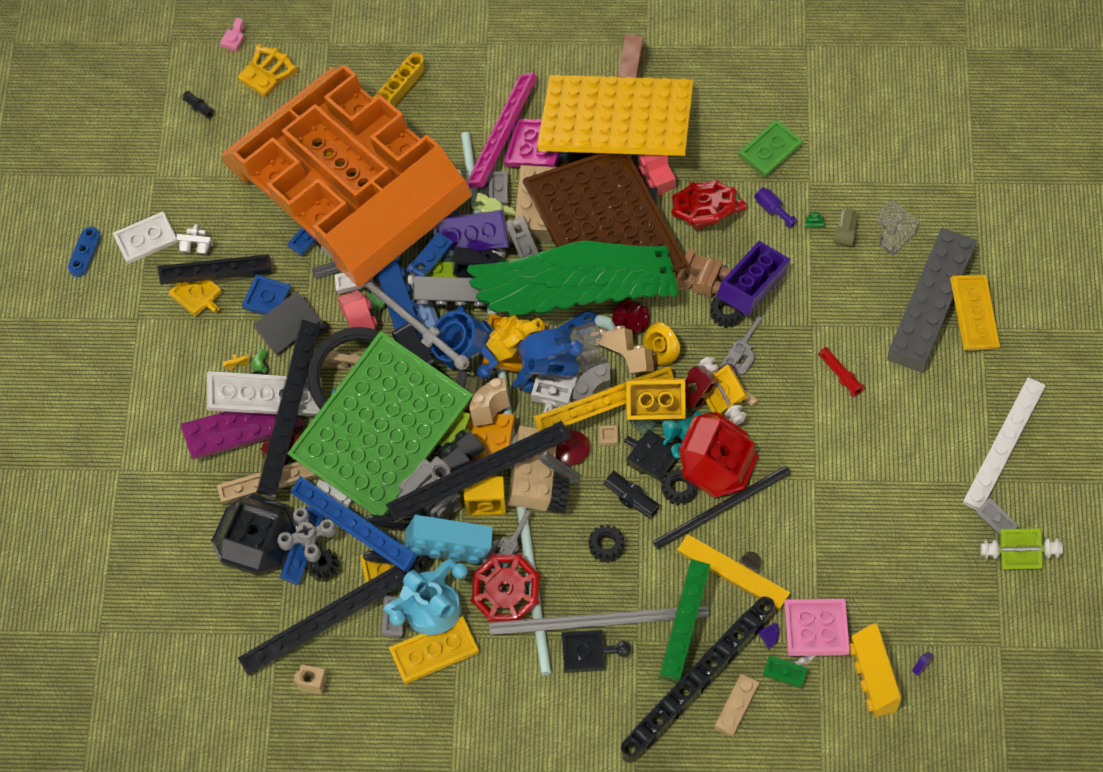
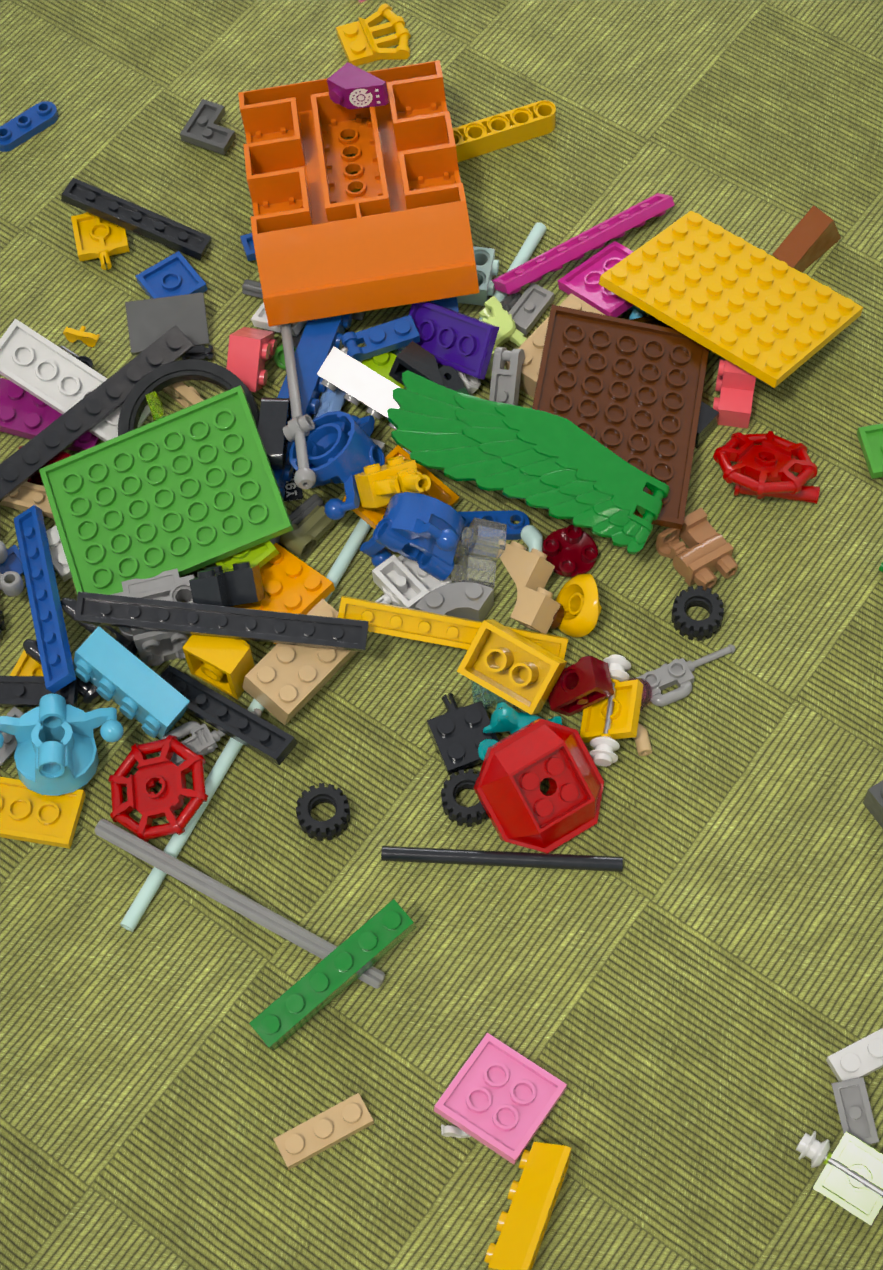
camera: 35 degrees right, 0 degrees up
(145, 237) = (99, 146): white tile -> none
(186, 241) = (151, 185): white hips -> none
(198, 104) = (269, 35): black pin -> none
(208, 191) = (204, 130): none -> dark grey plate
(257, 362) = (104, 349): bright green arm -> none
(312, 111) = (356, 88): none -> magenta slope
(334, 374) = (155, 405): none -> clear neon green tile
(489, 401) = (312, 548): tan brick -> none
(523, 522) = (231, 718): none -> black plate
(559, 467) = (332, 680): dark grey axle -> none
(559, 494) = (308, 712): black tyre -> none
(574, 450) = (376, 668): dark red dish -> none
(585, 651) = (193, 930): black plate -> none
(608, 435) = (432, 679): tan tile -> none
(631, 495) = (400, 771): black piece -> none
(697, 679) = (298, 1062): black beam -> none
(733, 571) = (453, 953): yellow tile -> none
(751, 561) = (483, 953): clear smoke plate -> none
(753, 278) = (755, 591): dark purple brick -> none
(769, 635) = (436, 1067): dark purple tile -> none
(773, 205) = (852, 505): dark purple piece -> none
(785, 671) = (416, 1130): green plate -> none
(845, 377) = (787, 793): red pin -> none
(922, 663) = (607, 1244): dark purple tile -> none

